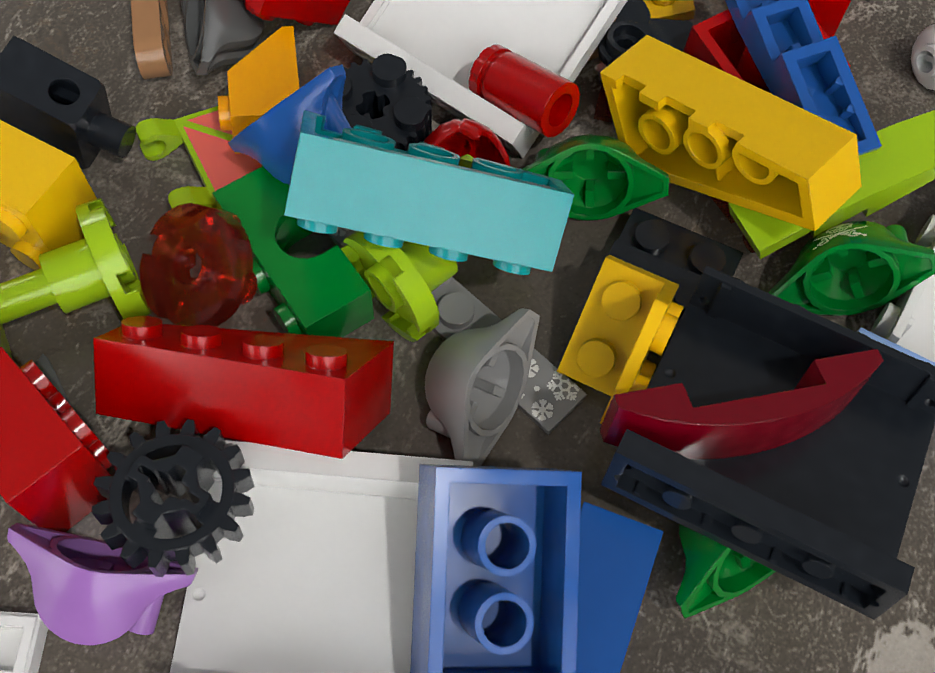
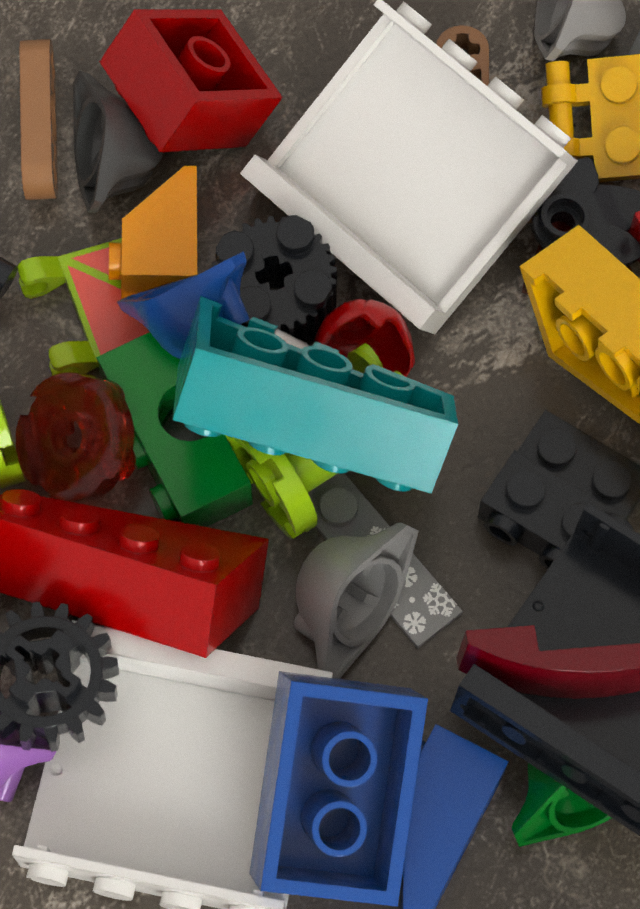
camera: 10 degrees right, 5 degrees up
(524, 90) = (439, 270): red piece -> none
(602, 175) = (500, 371): green hat -> none
(620, 324) = (502, 552): yellow bracket -> none

